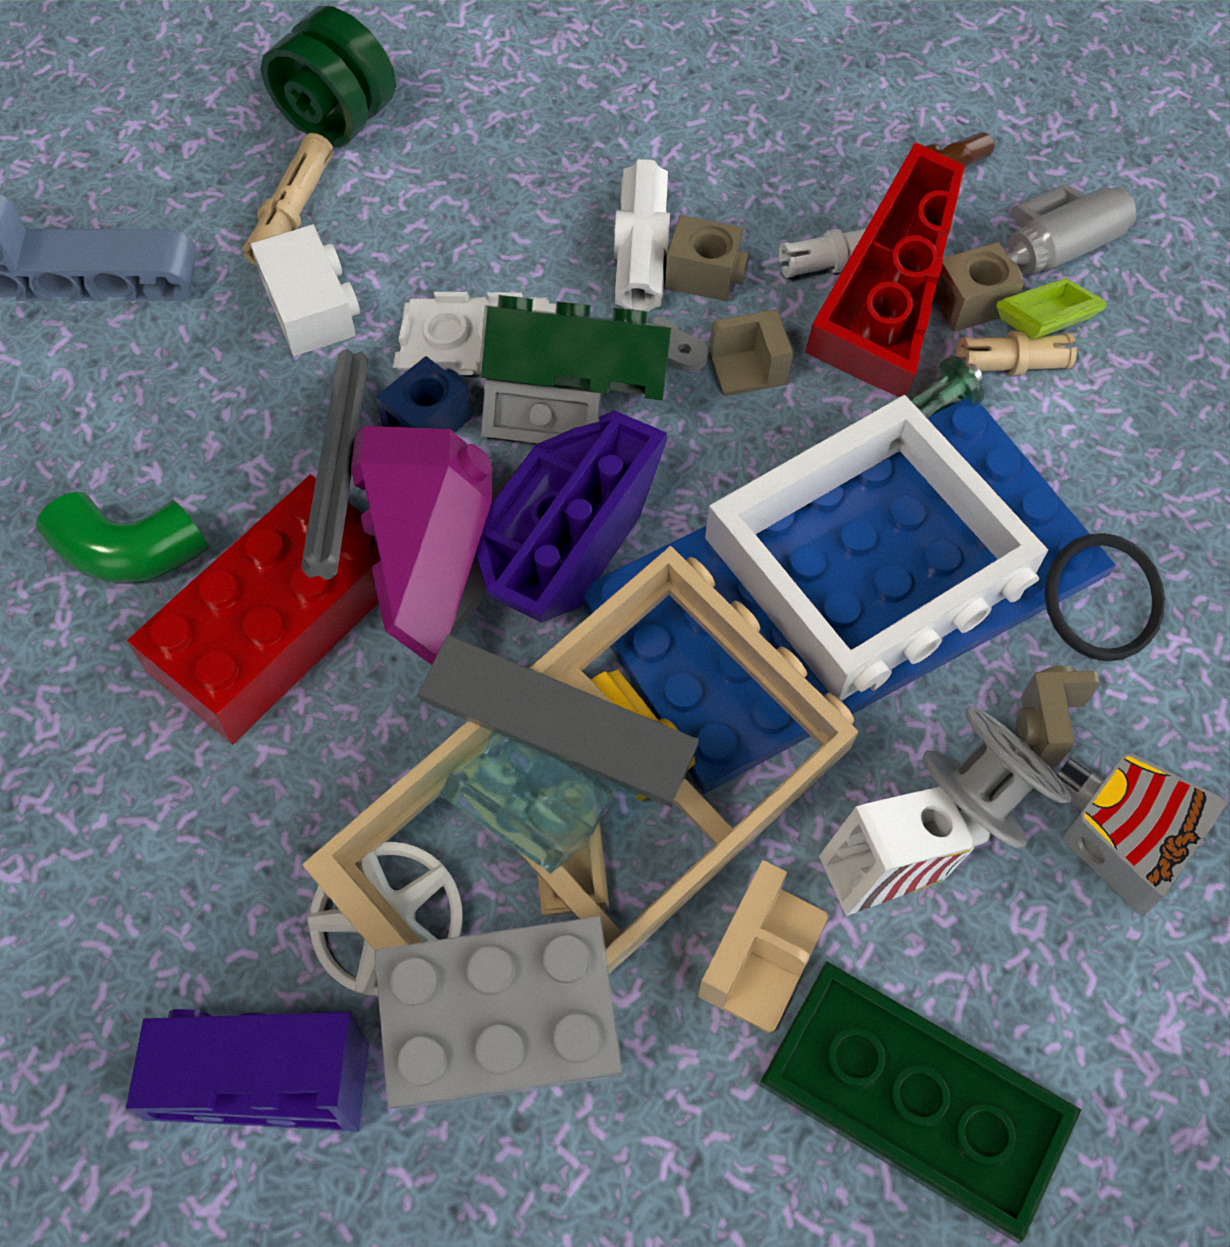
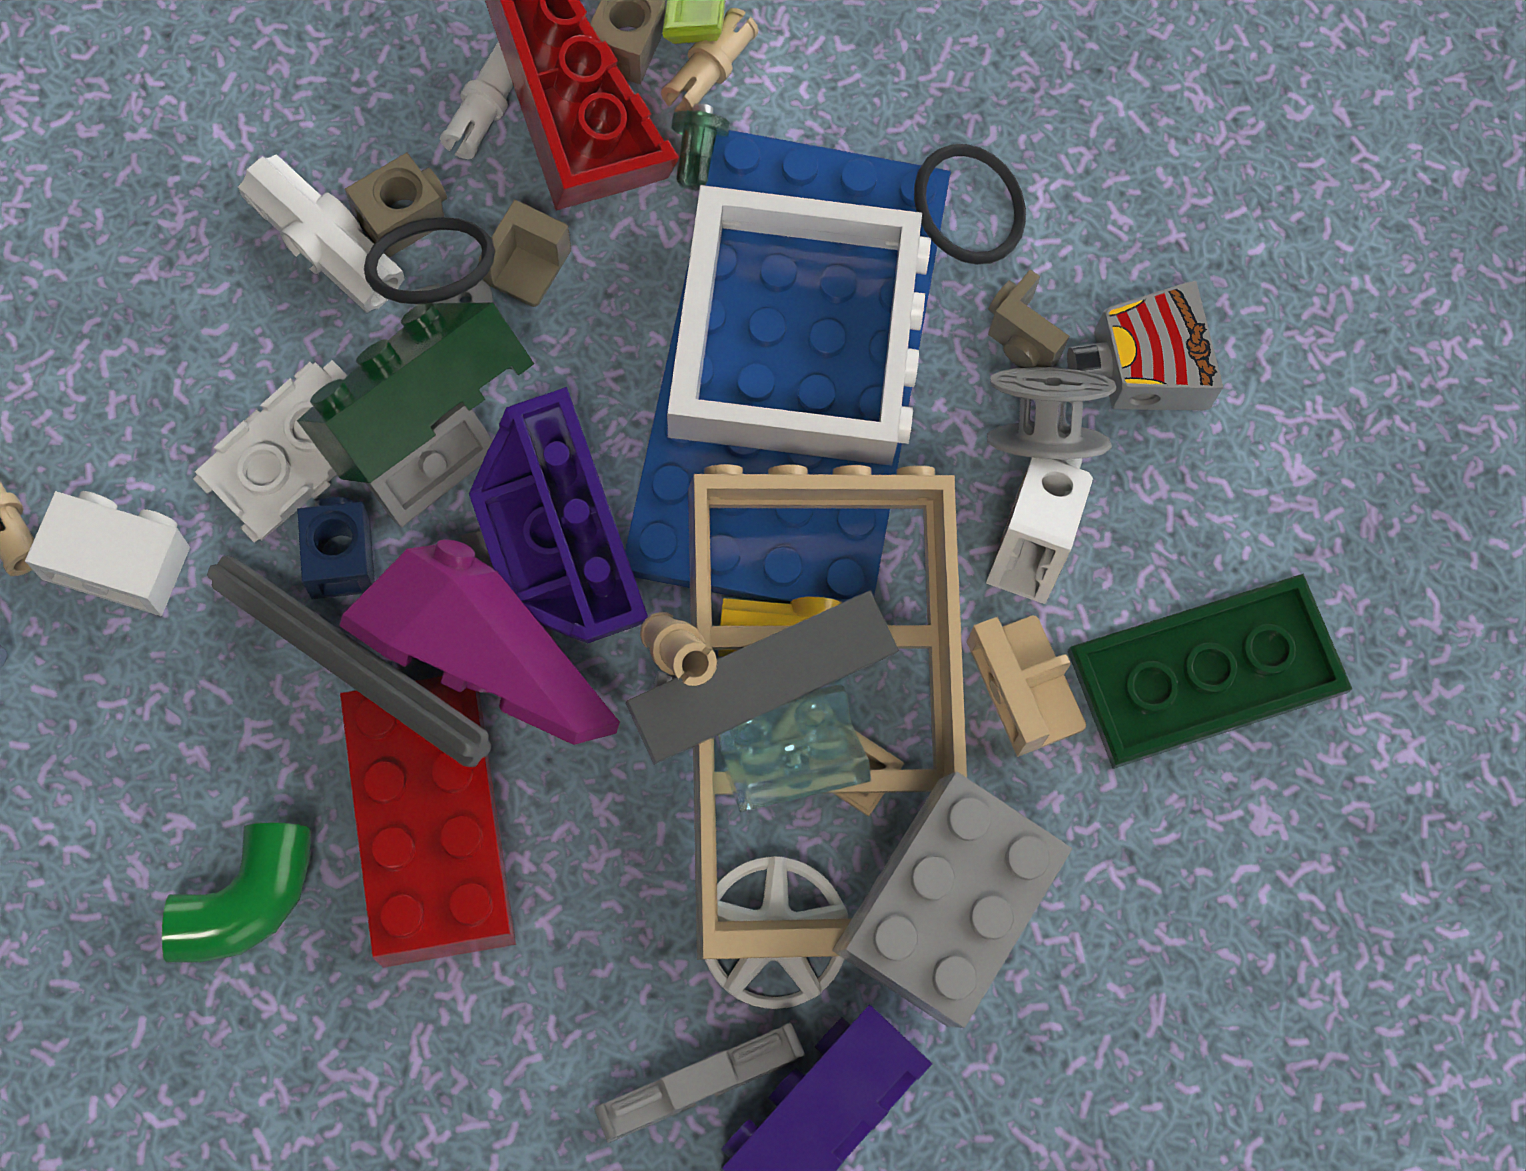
camera: 55 degrees left, 10 degrees up
(205, 947) = (708, 1077): none -> light grey piece
(507, 639) = (678, 648): none -> tan pin
(668, 312) = (437, 294): none -> black tyre

